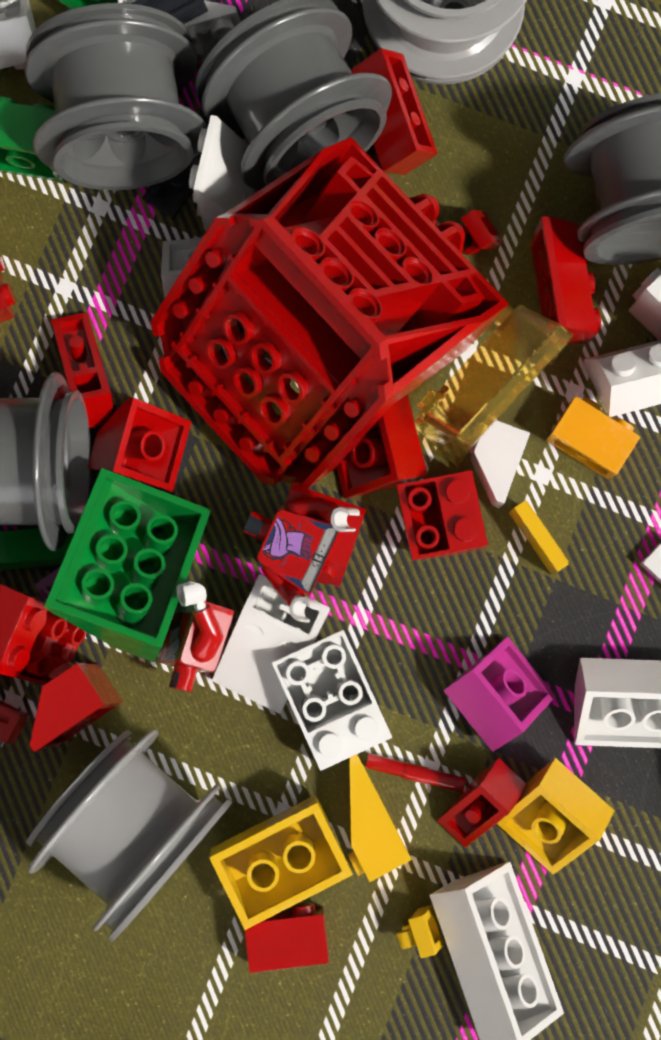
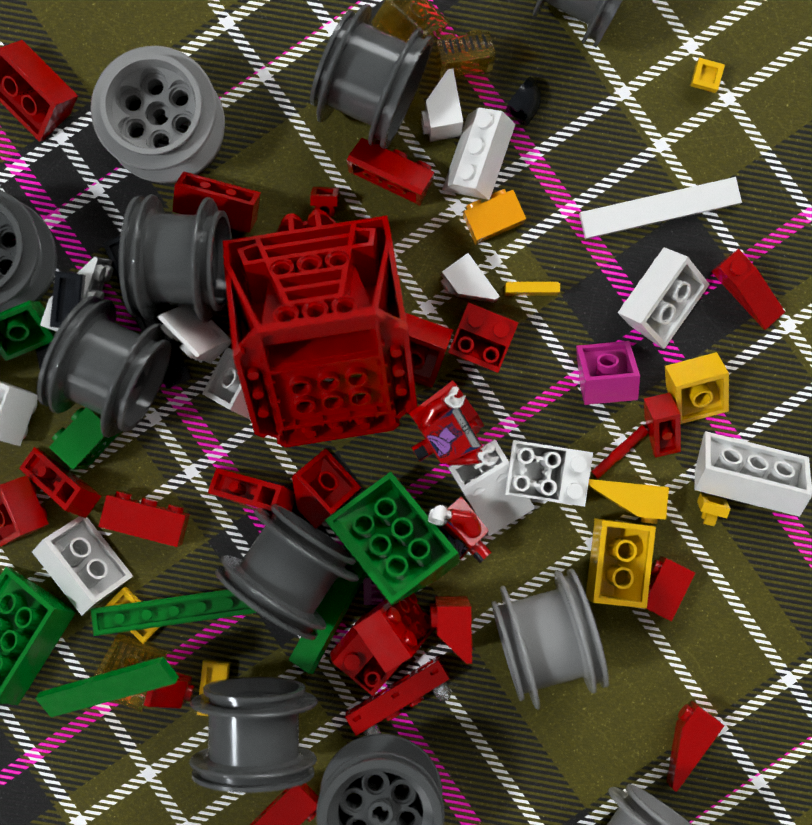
camera: 55 degrees left, 5 degrees up
(490, 381) = (425, 255): clear yellow windscreen -> none

